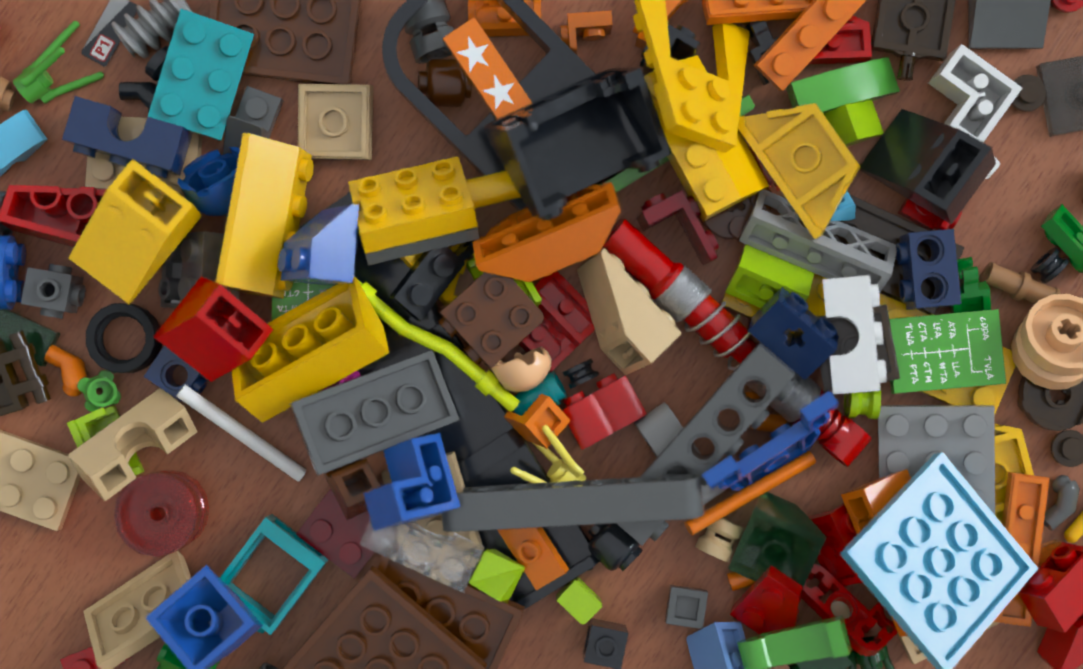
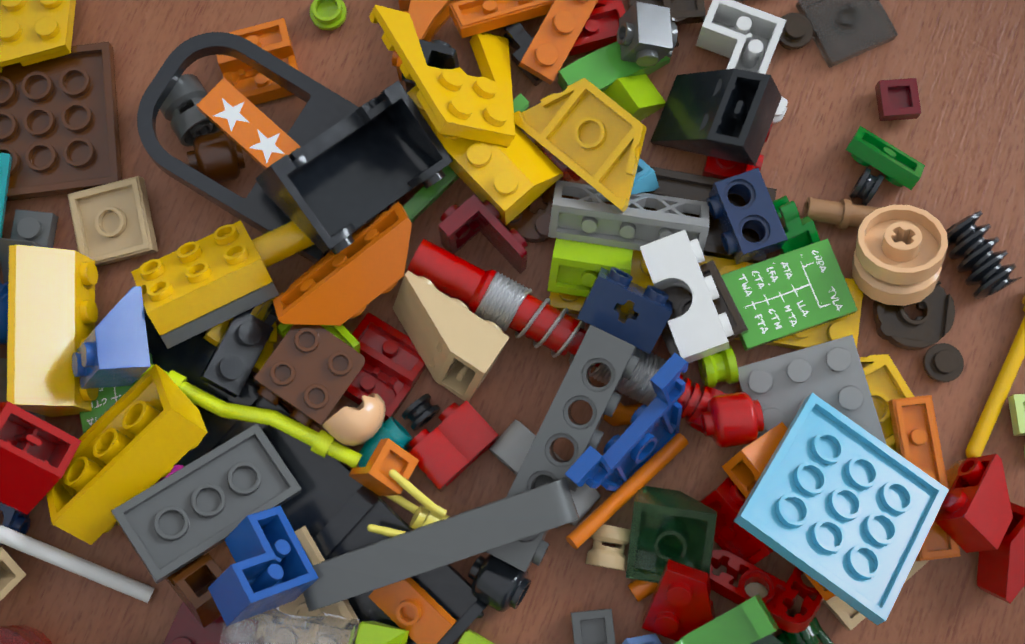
camera: 10 degrees left, 10 degrees down
(587, 24) = (346, 69): orange bracket -> none
(863, 457) = (732, 419): none -> red head
(884, 67) = (646, 34): none -> dark grey brick
(1066, 502) = (957, 419): dark grey arm -> none

